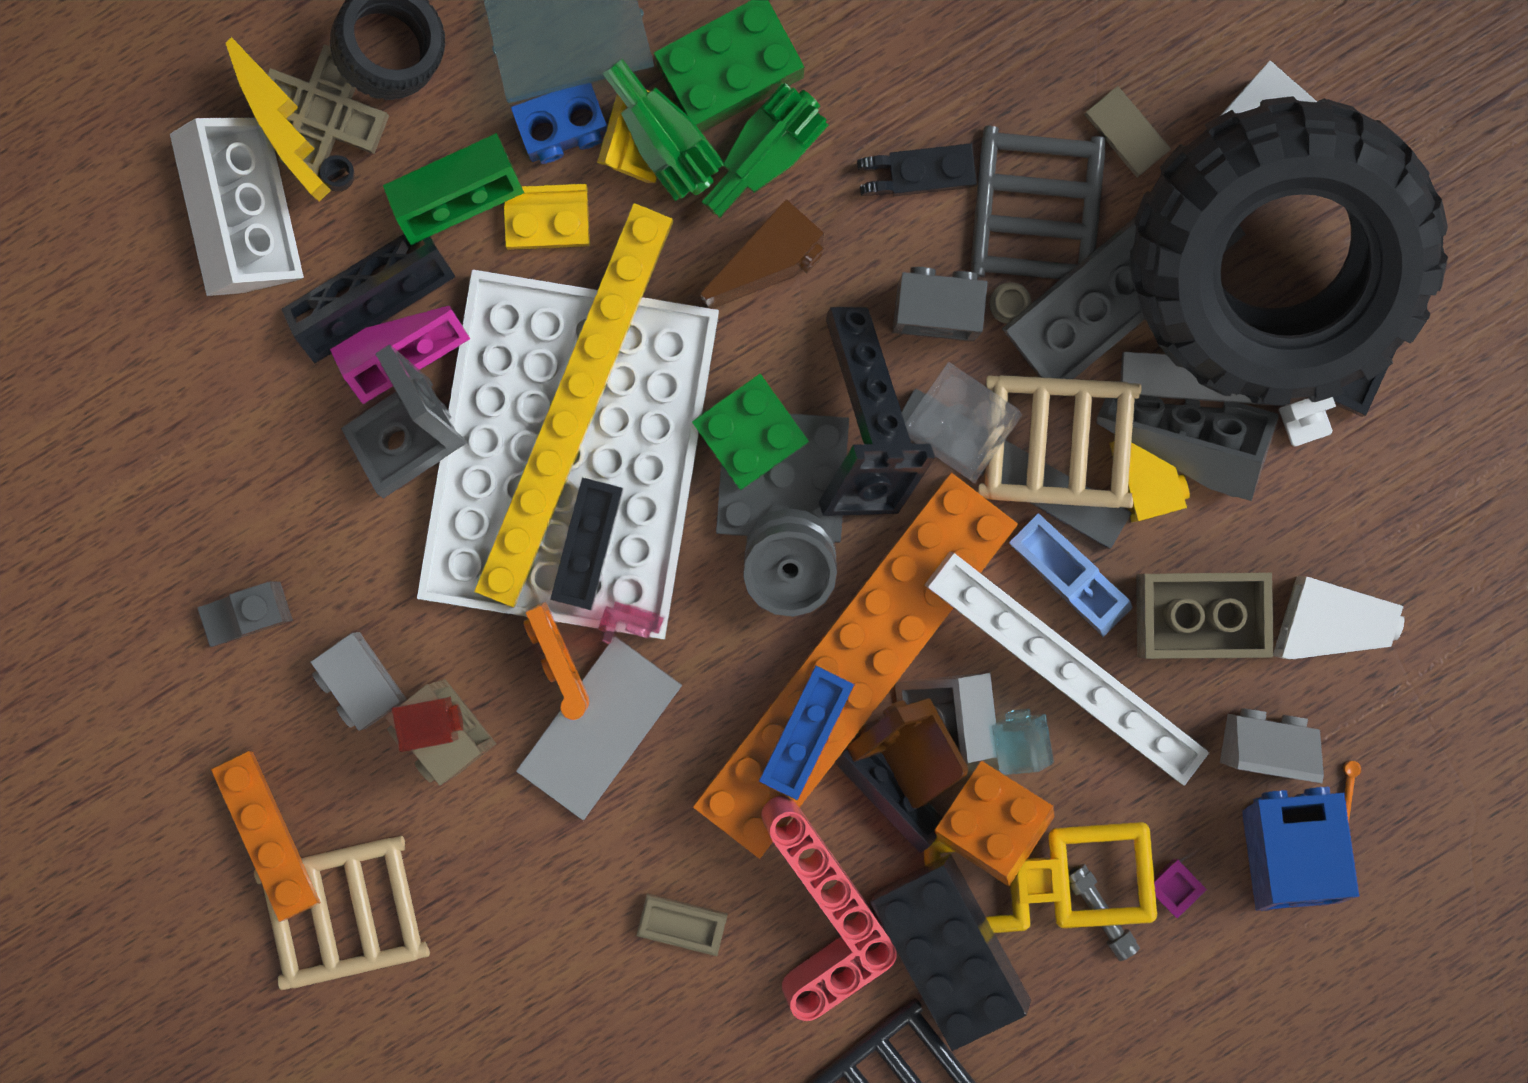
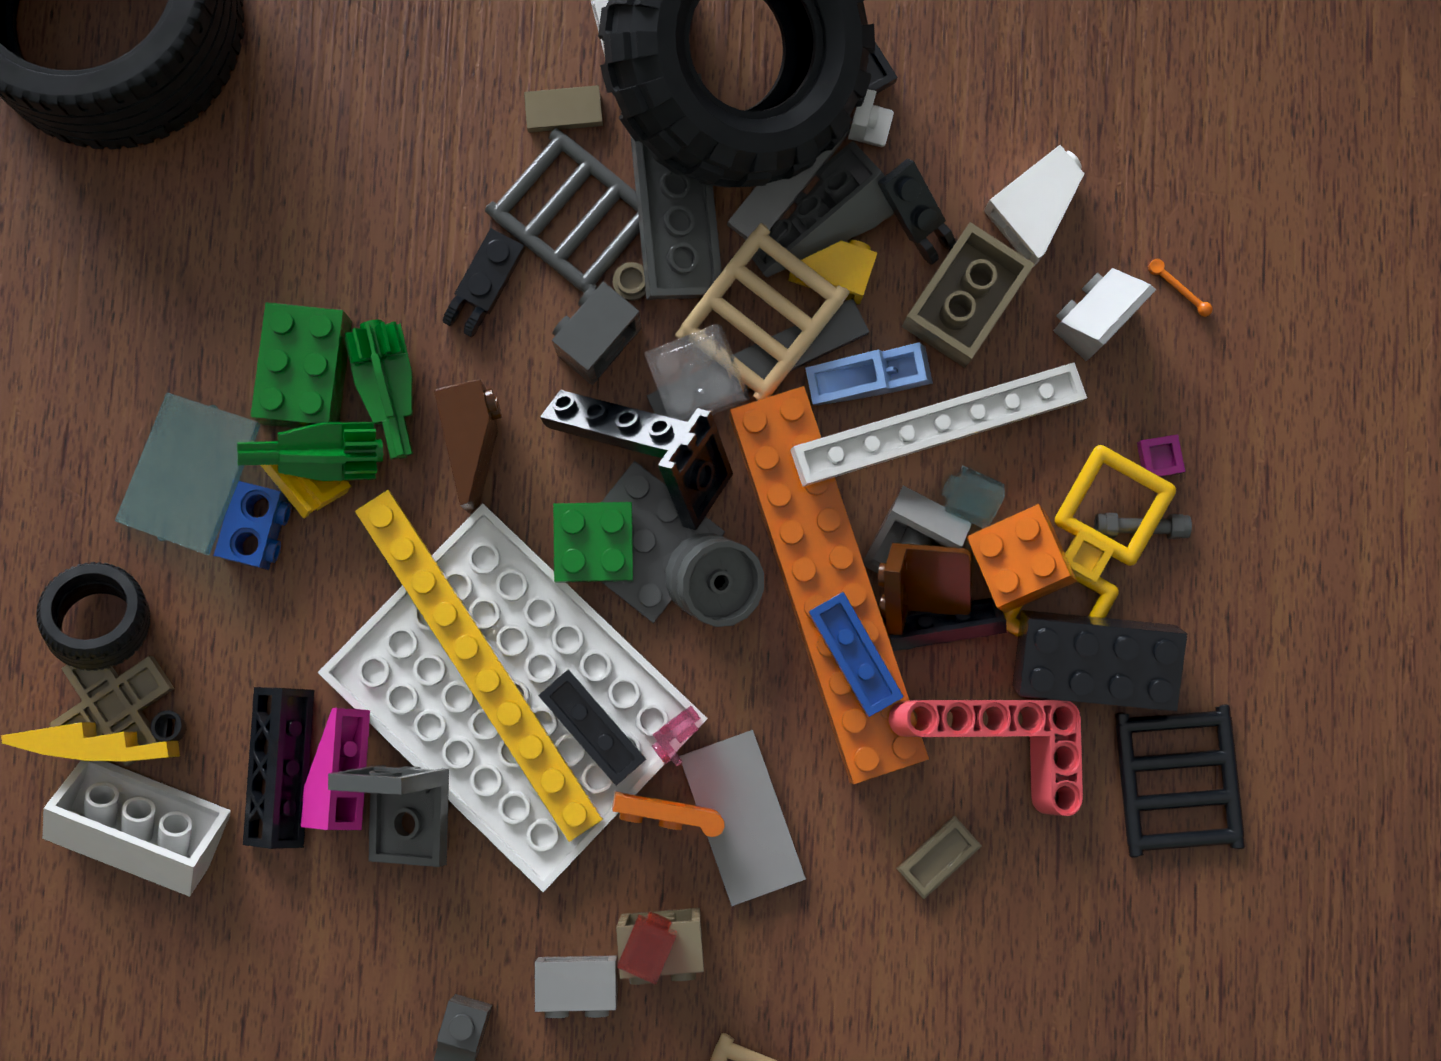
camera: 60 degrees left, 5 degrees down
(453, 189) = (245, 644): green brick -> none
(548, 217) = (318, 587): yellow plate -> none
(1252, 515) = (916, 209): none -> black hinge
(1301, 860) = (1203, 347): blue container -> none

